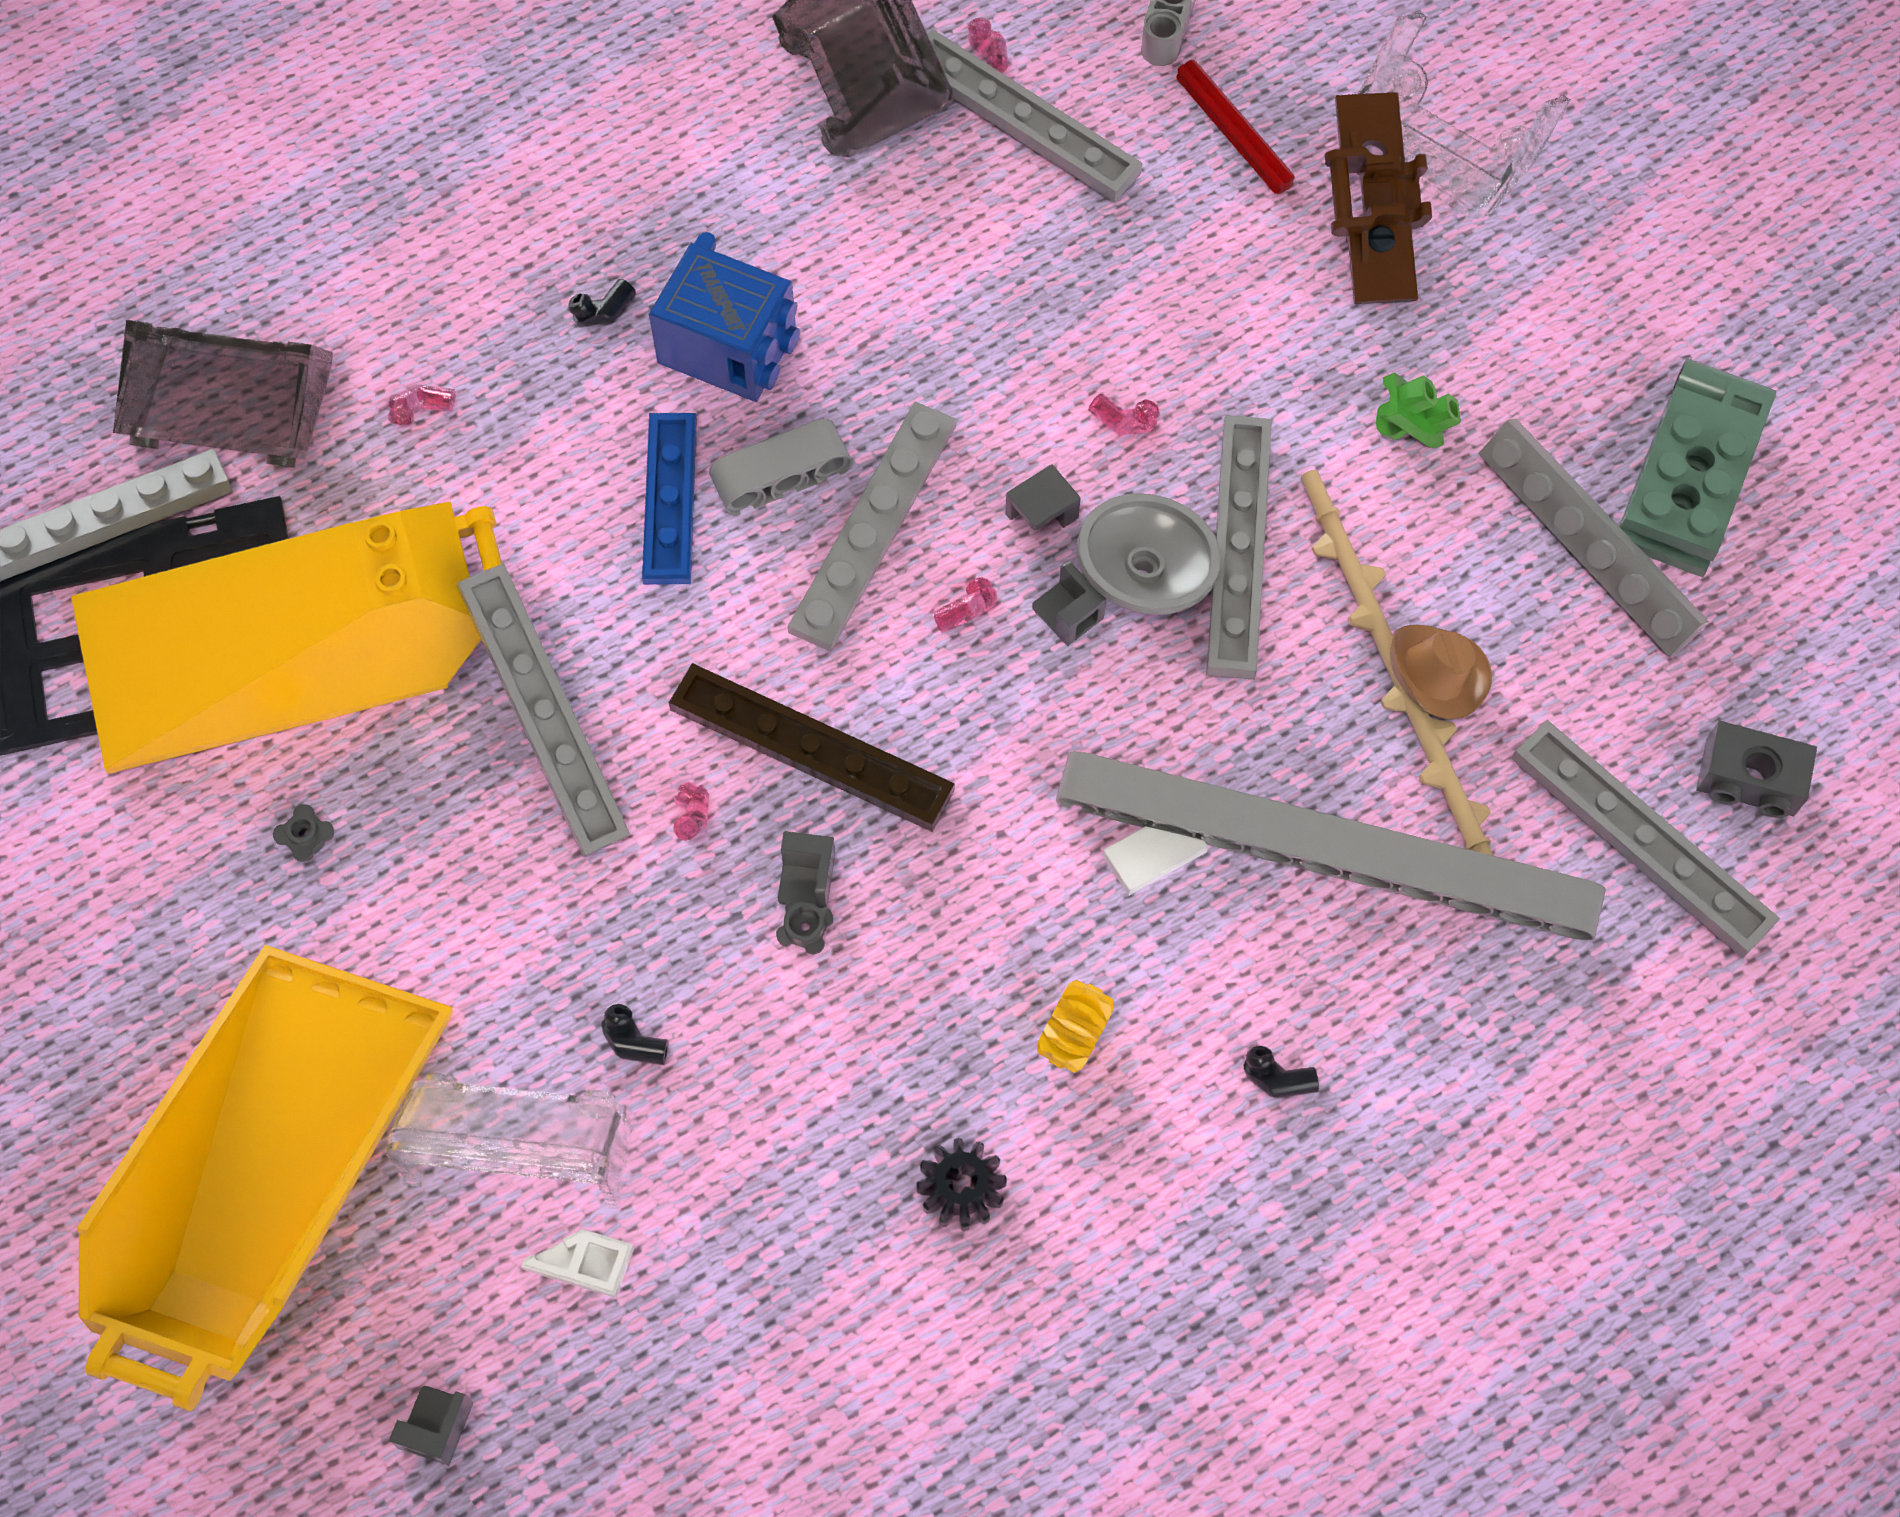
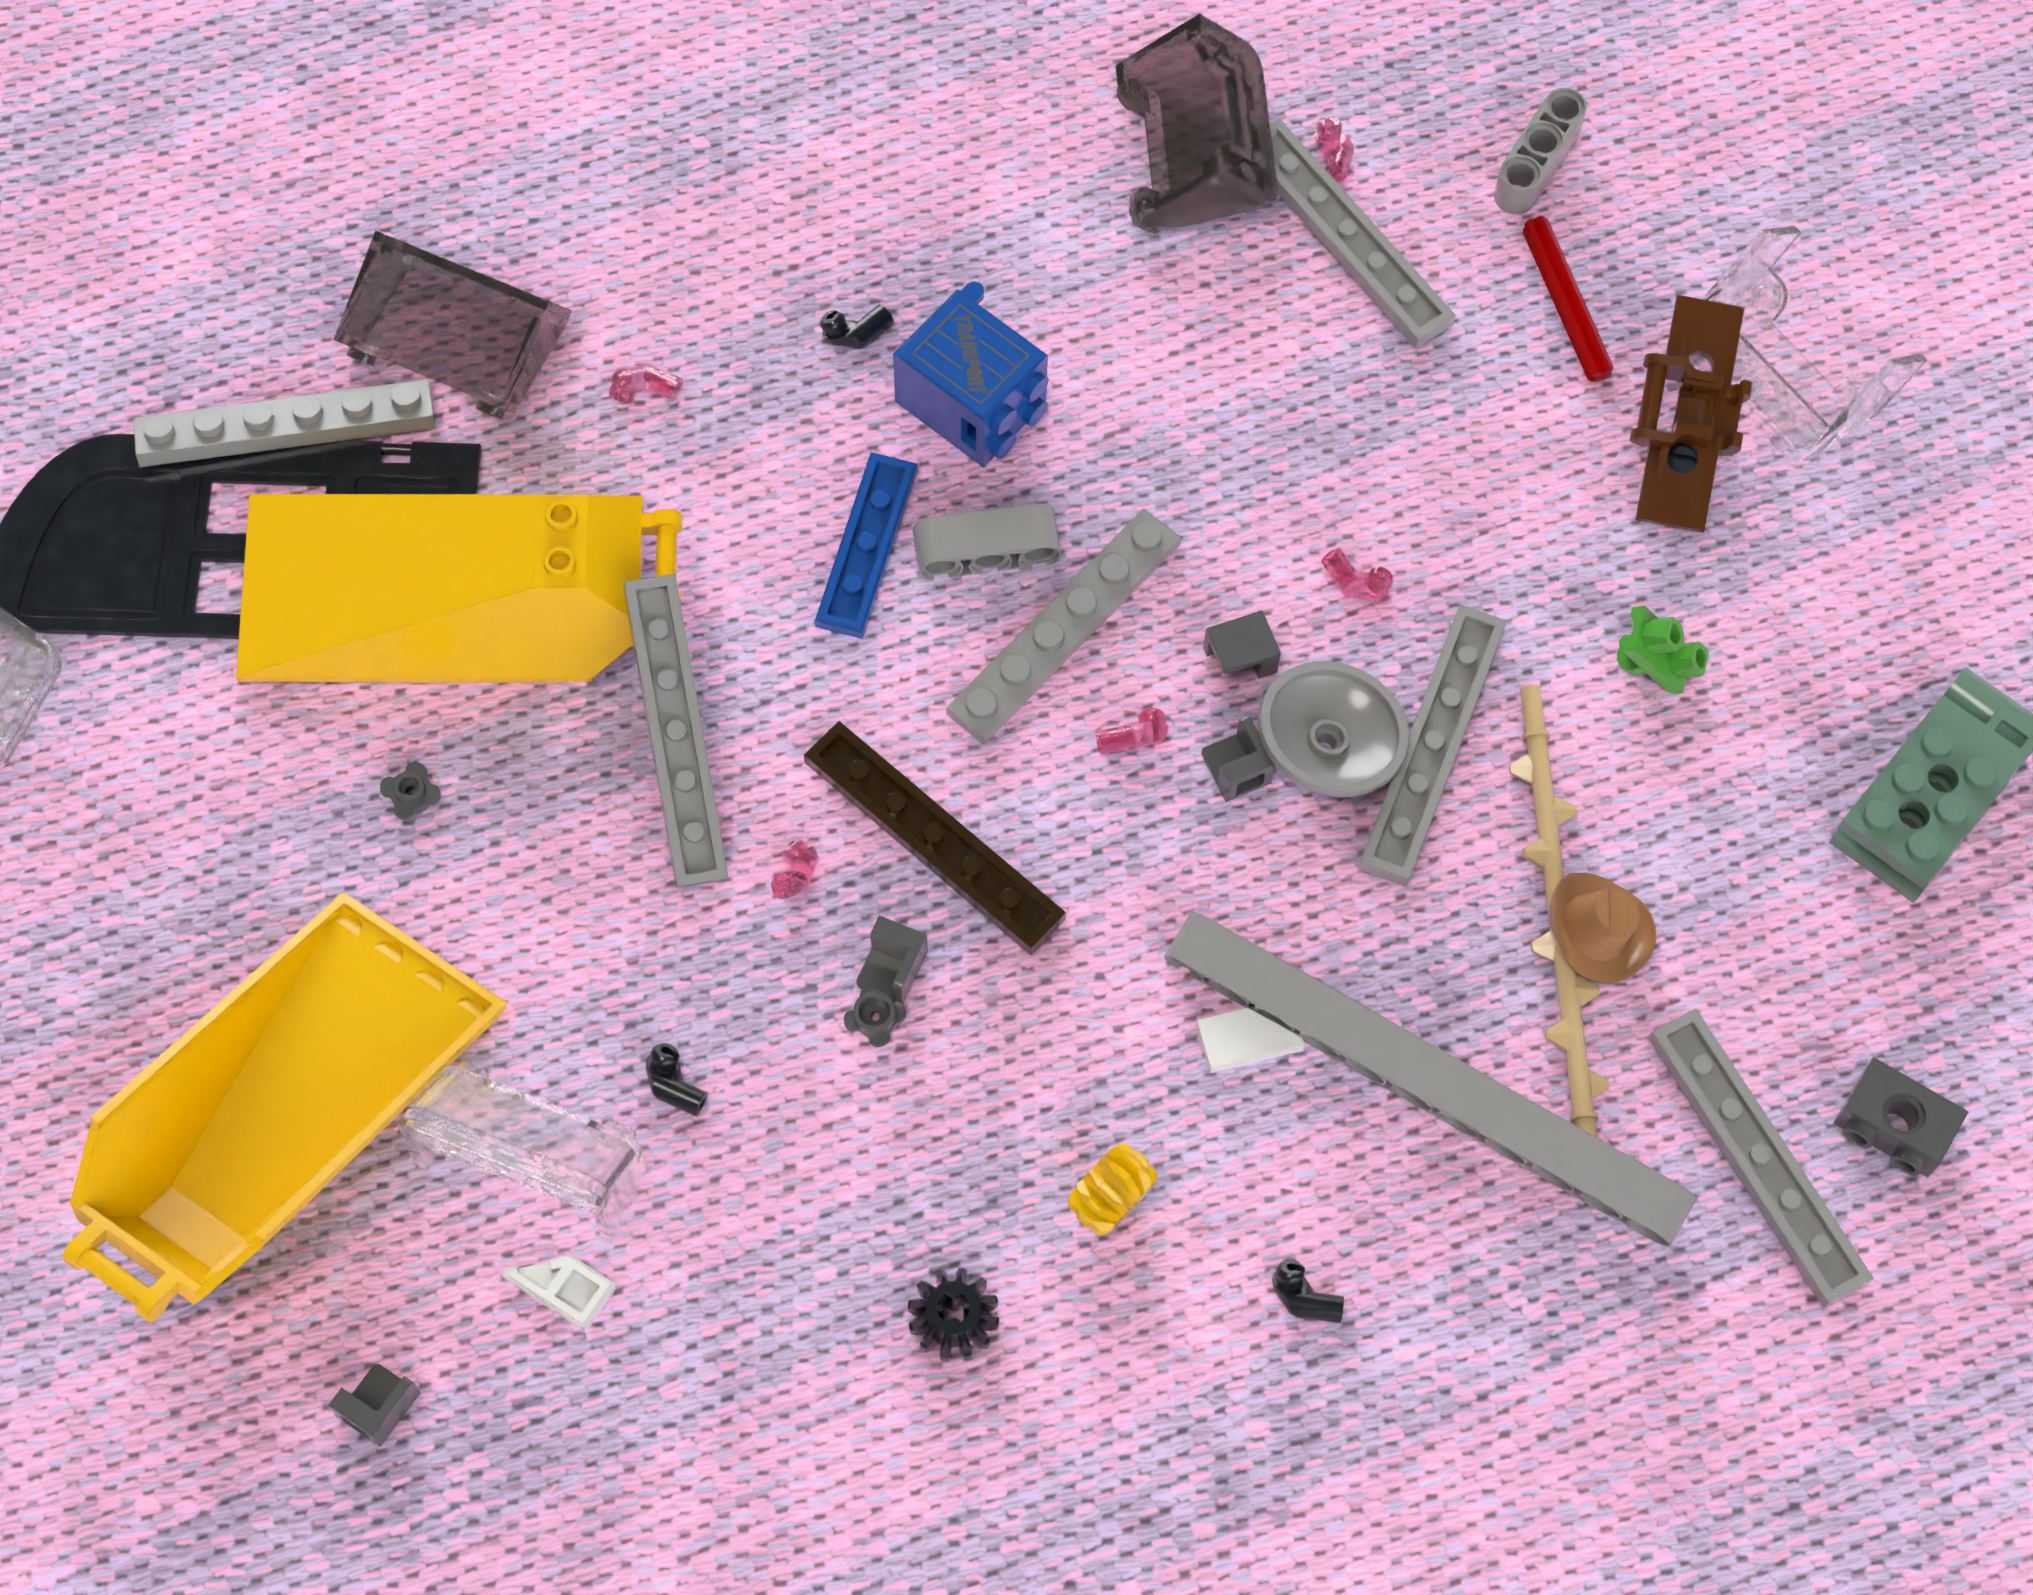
camera: 15 degrees right, 0 degrees up
(1593, 537) = (1807, 832): light grey plate -> none

